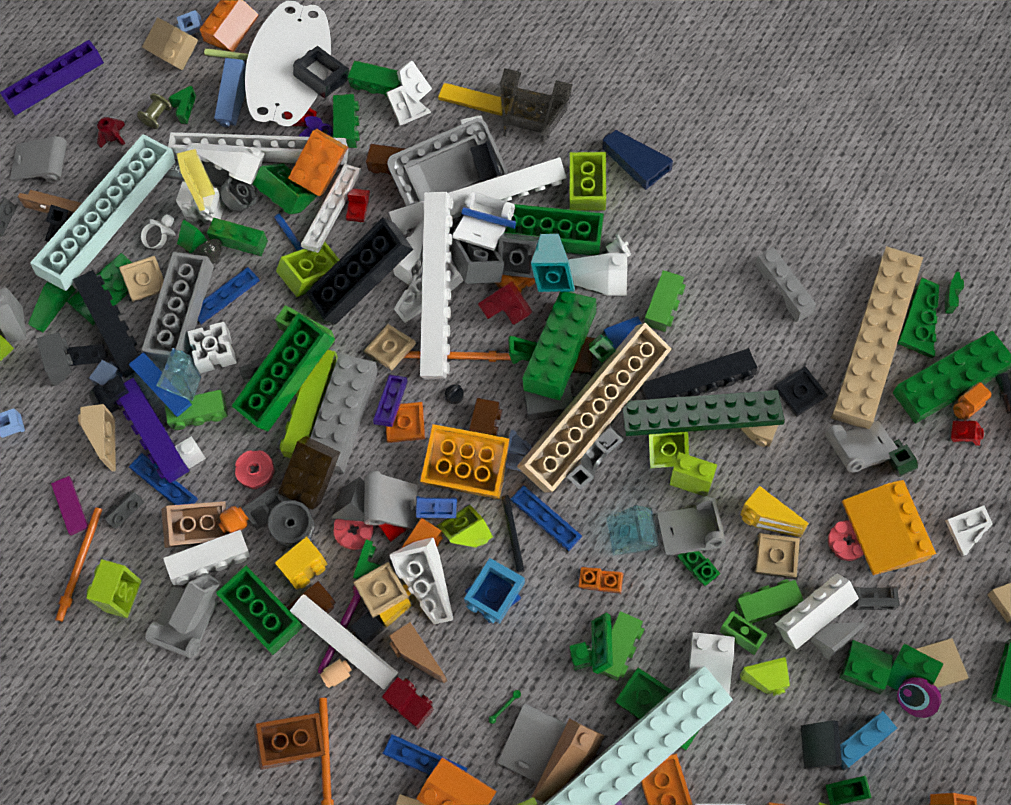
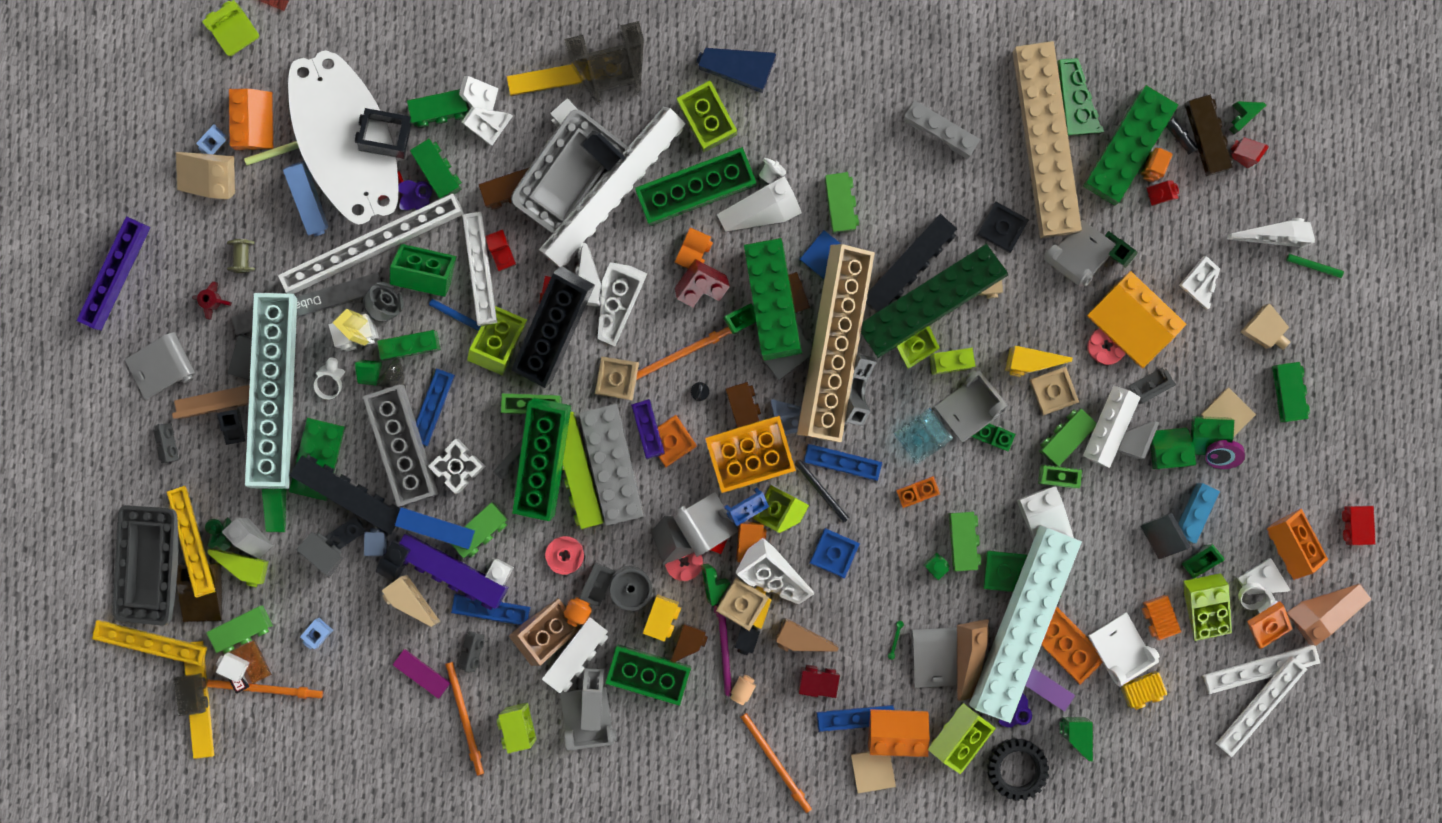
camera: 30 degrees left, 20 degrees up
(142, 278) = (347, 433): tan tile -> none
(180, 375) = (448, 512): clear light blue slope -> none
(183, 102) = (263, 228): green slope -> none
(240, 161) = (361, 273): white wedge -> none
(288, 740) = (738, 765): dark orange slope -> none
(309, 472) = (620, 537): dark brown brick -> none
(318, 162) = (443, 233): orange brick -> none
(343, 641) = (735, 662): white tile -> none
(435, 286) = (629, 302): white brick -> none
(476, 263) = (651, 255): dark grey brick -> none
(479, 231) = (638, 213): white door -> none
(488, 217) = (641, 210): blue bar -> none
(504, 573) = (834, 532): dark azure window -> none
(517, 254) = (687, 231): dark grey slope -> none
(551, 265) = (724, 228): teal slope -> none
(601, 643) = (950, 548): green tile -> none
(602, 348) = (812, 279): green brick -> none
(768, 676) = (1098, 501): lime slope -> none
(952, 293) = (1092, 52): green slope -> none

